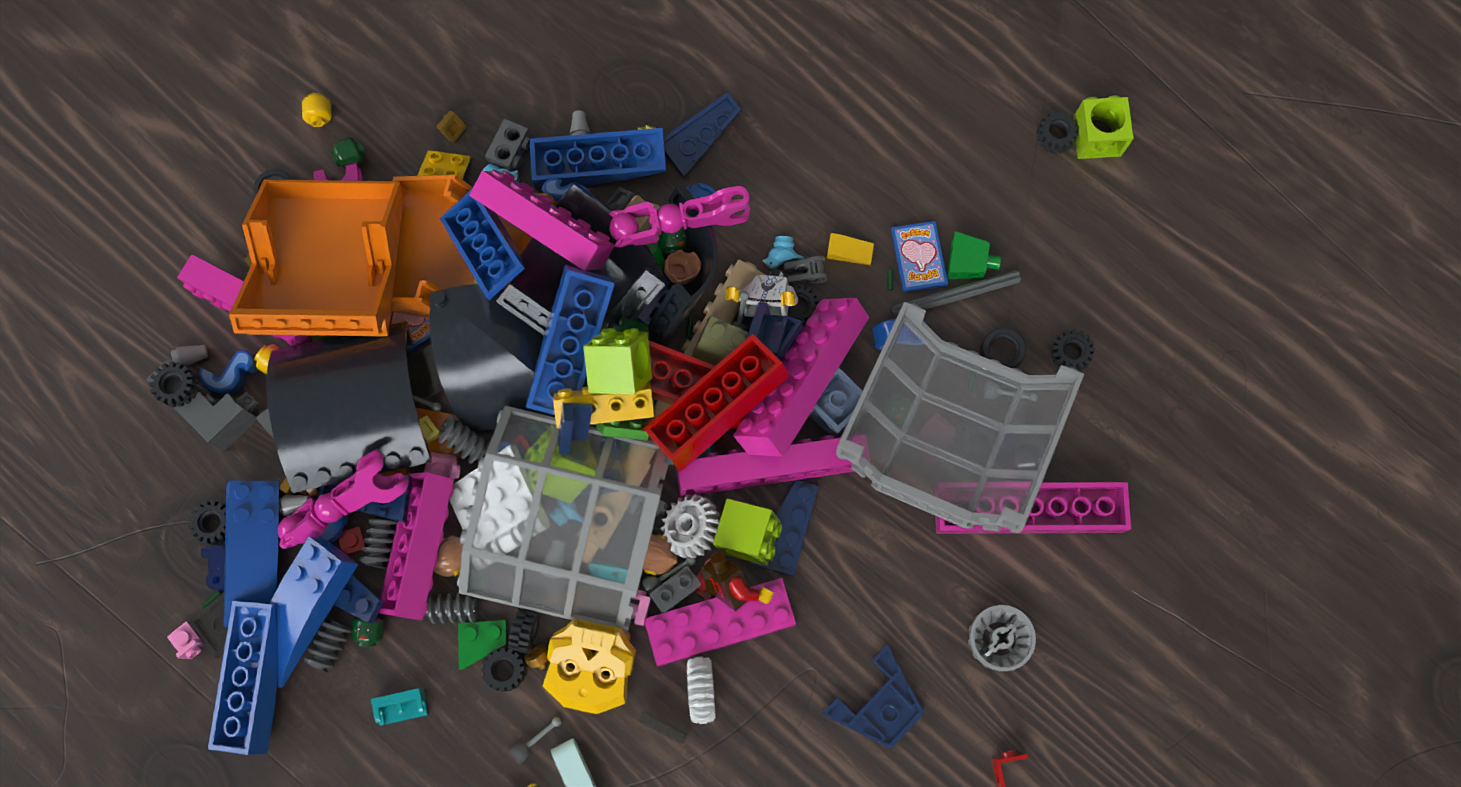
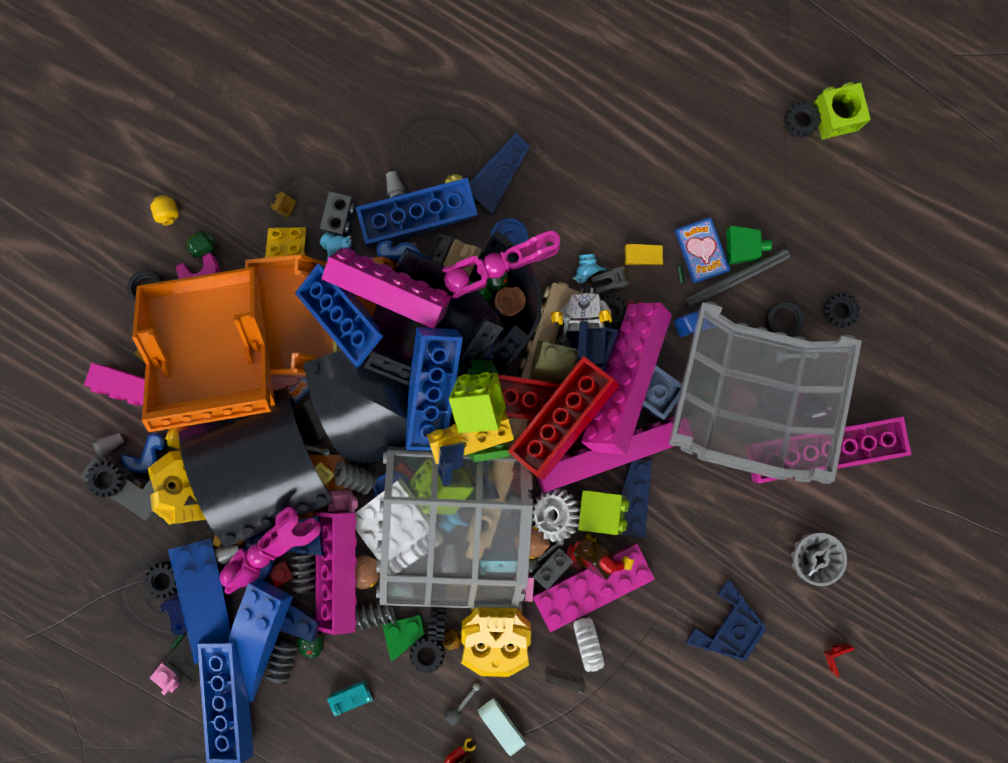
camera: 15 degrees left, 10 degrees up
(240, 425) = (170, 502): none -> yellow brick

